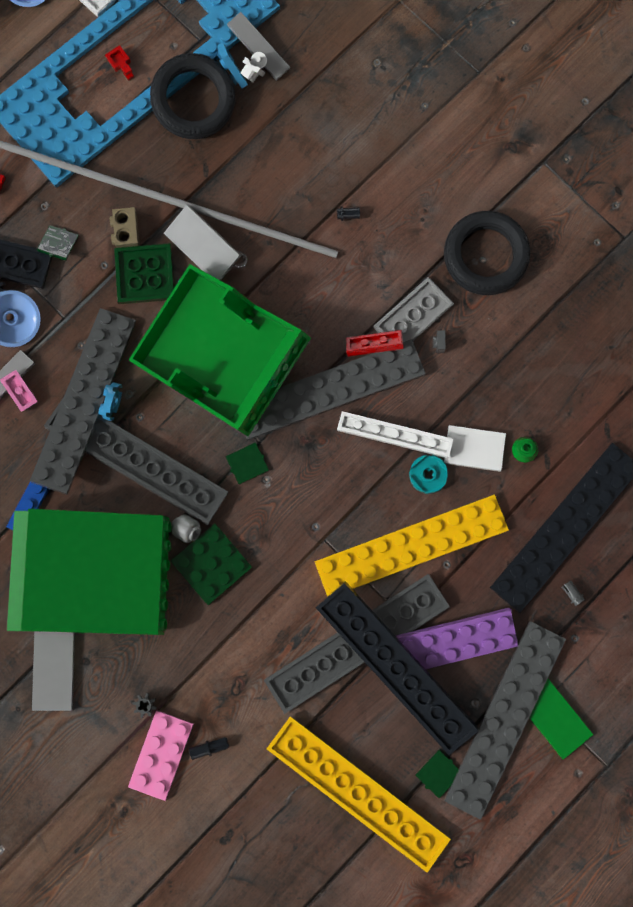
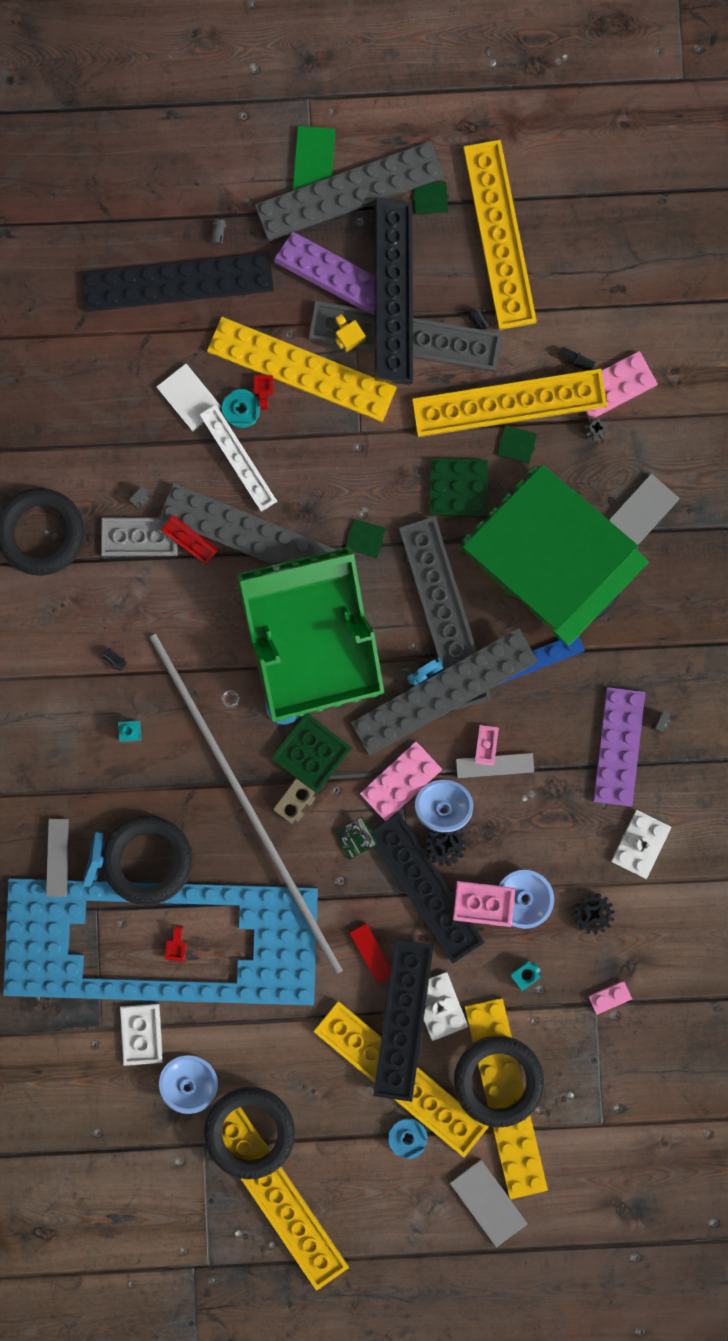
camera: 140 degrees left, 5 degrees up
(61, 312) = (401, 781): none -> bright pink plate
(186, 528) = (454, 528): light grey head -> none
(196, 638) = (517, 444): none -> dark green piece
(202, 243) = (247, 735): light grey tile -> none
(228, 664) = (509, 403): none -> yellow plate
(253, 67) = (77, 840): white hips -> none
(289, 172) = (129, 731): none -> teal brick
(314, 709) = (478, 318): none -> black pin
(398, 601) = (349, 334): none -> yellow brick
(426, 504) = (263, 387): none -> red plate
(525, 449) = (151, 367): green cone -> none

